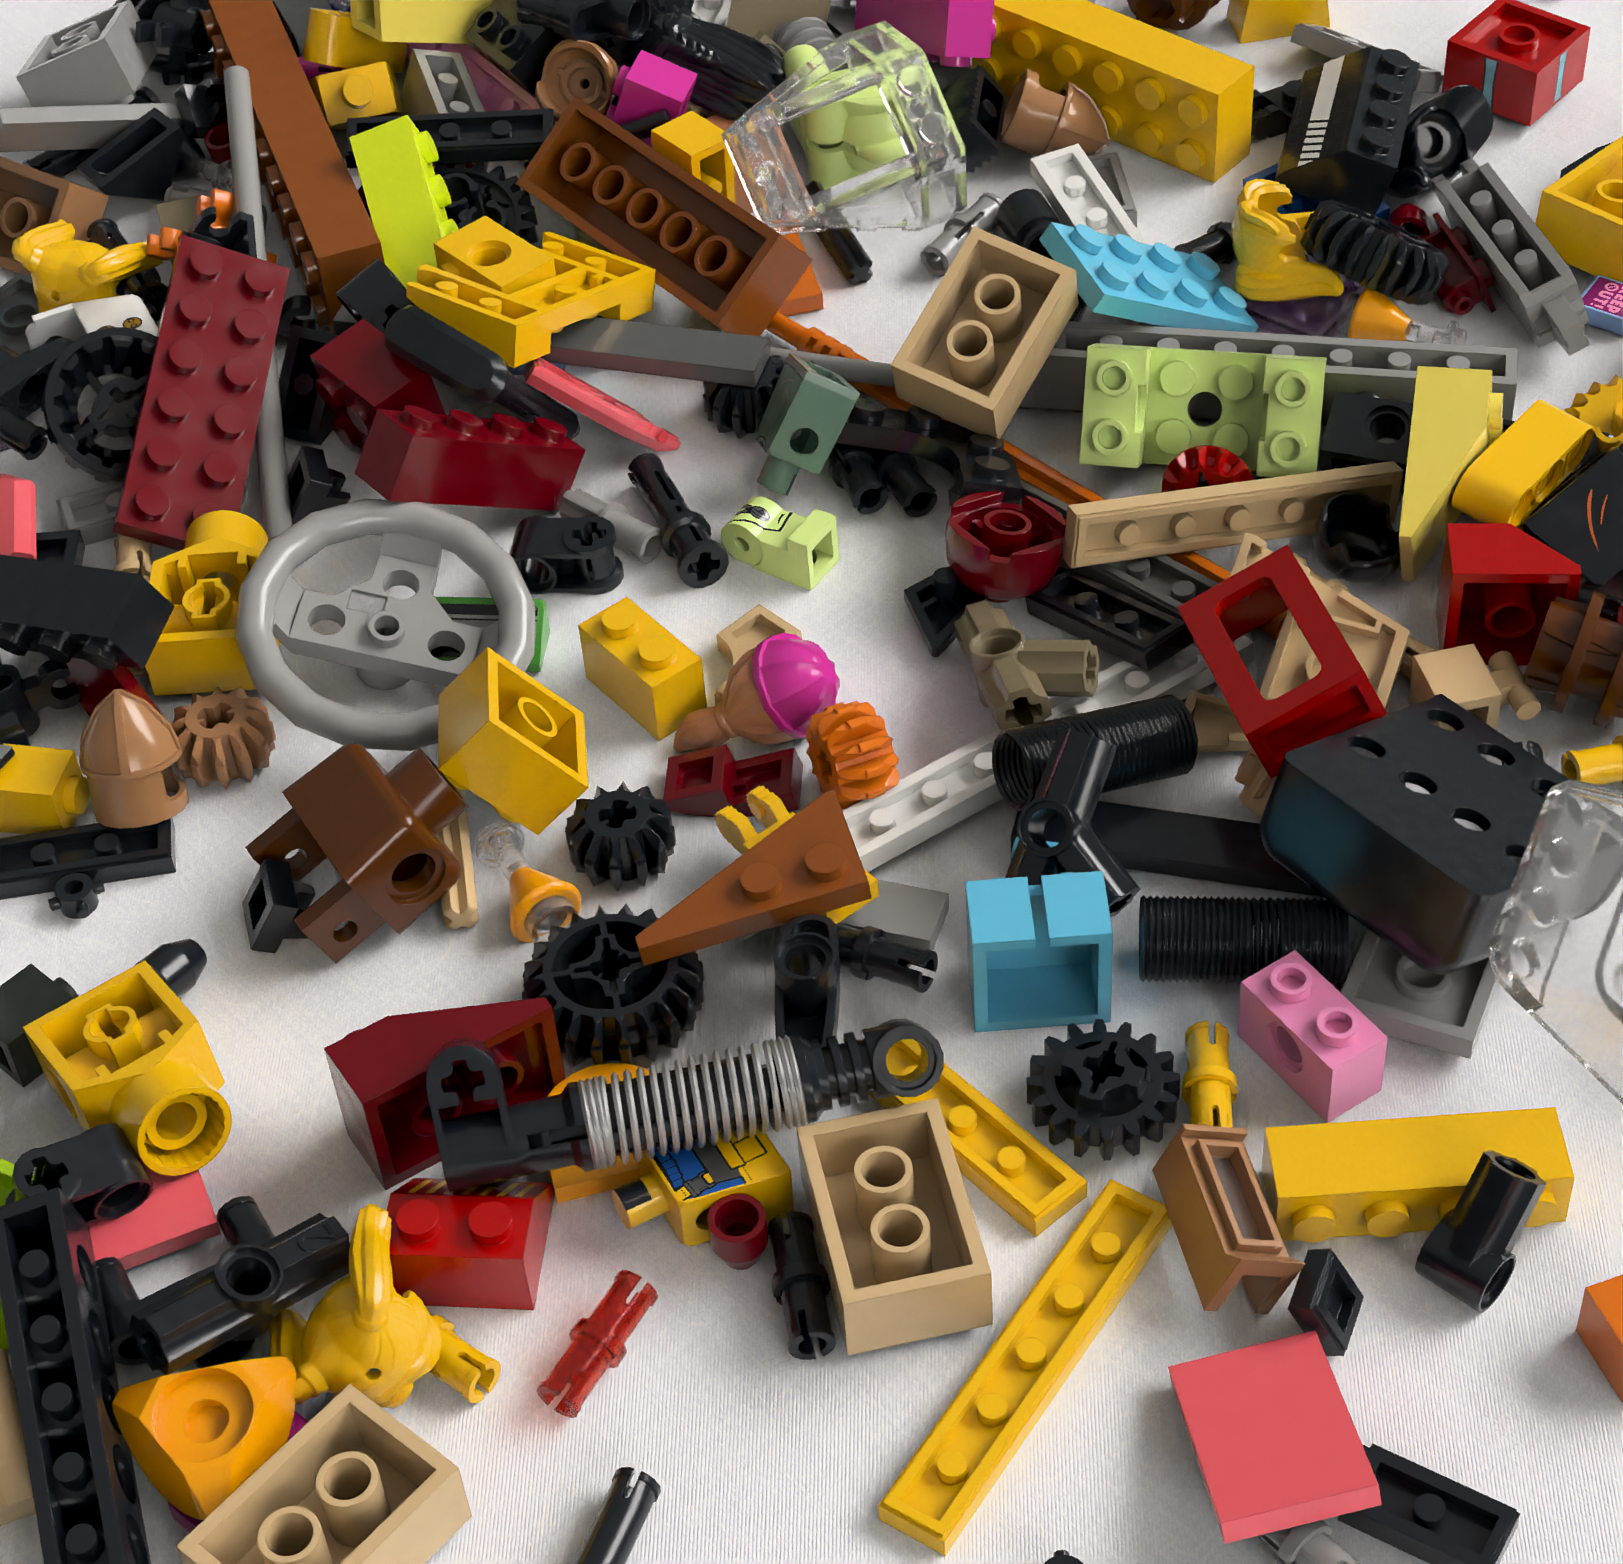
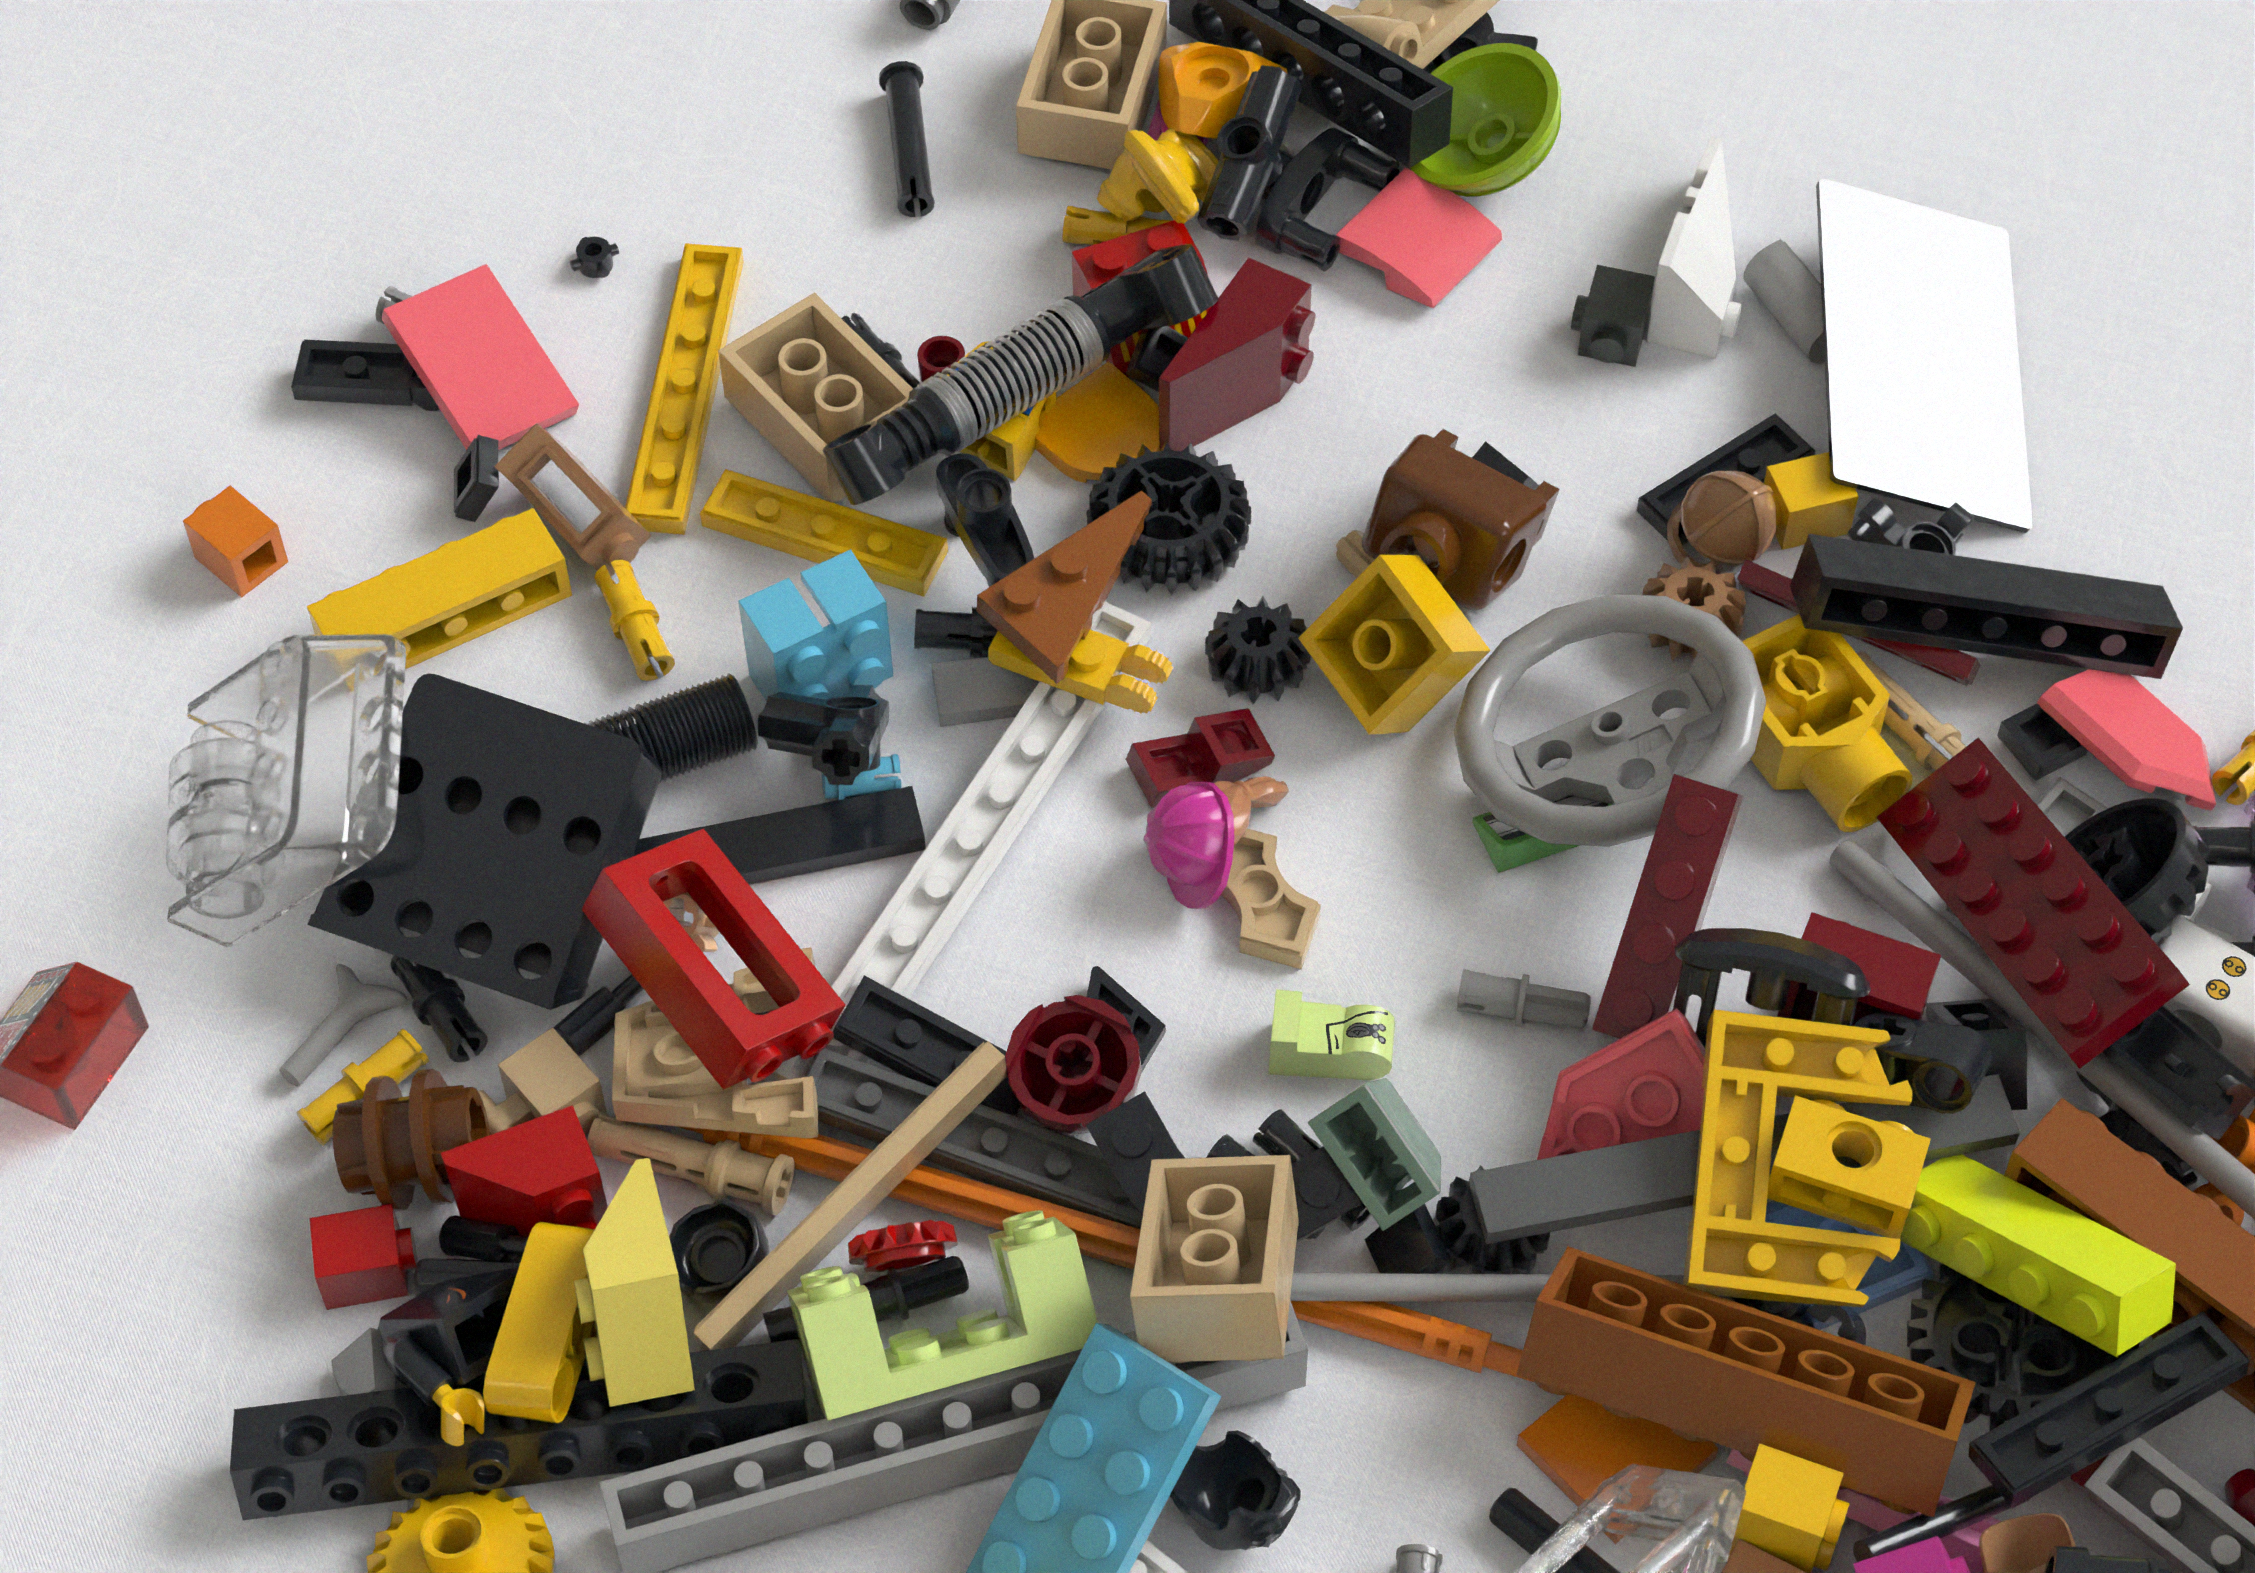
camera: 150 degrees right, 10 degrees up
(76, 895) = (1691, 444): black piece -> none
(92, 1170) = (1434, 173): black piece -> none
(137, 1062) = (1478, 280): yellow brick -> none
(178, 964) = (1549, 408): black hose -> none
(314, 484) = (1859, 910): black tile -> none
(534, 897) = (1287, 571): piece -> none
(561, 552) = (1540, 925): black piece -> none
(597, 1343) = (1000, 271): clear red pin -> none
(642, 667) = (1355, 818): yellow brick -> none
(683, 532) = (1435, 1012): black pin -> none
(851, 752) = (1090, 780): orange gear -> none
(1018, 673) = (963, 931): dark tan piece -> none
(1103, 1089) = (689, 573): black gear -> none
(1152, 738) = (859, 867): black piece -> none
(1311, 1036) = (561, 671): bright pink brick -> none
(1474, 1245) = (368, 548): black piece -> none

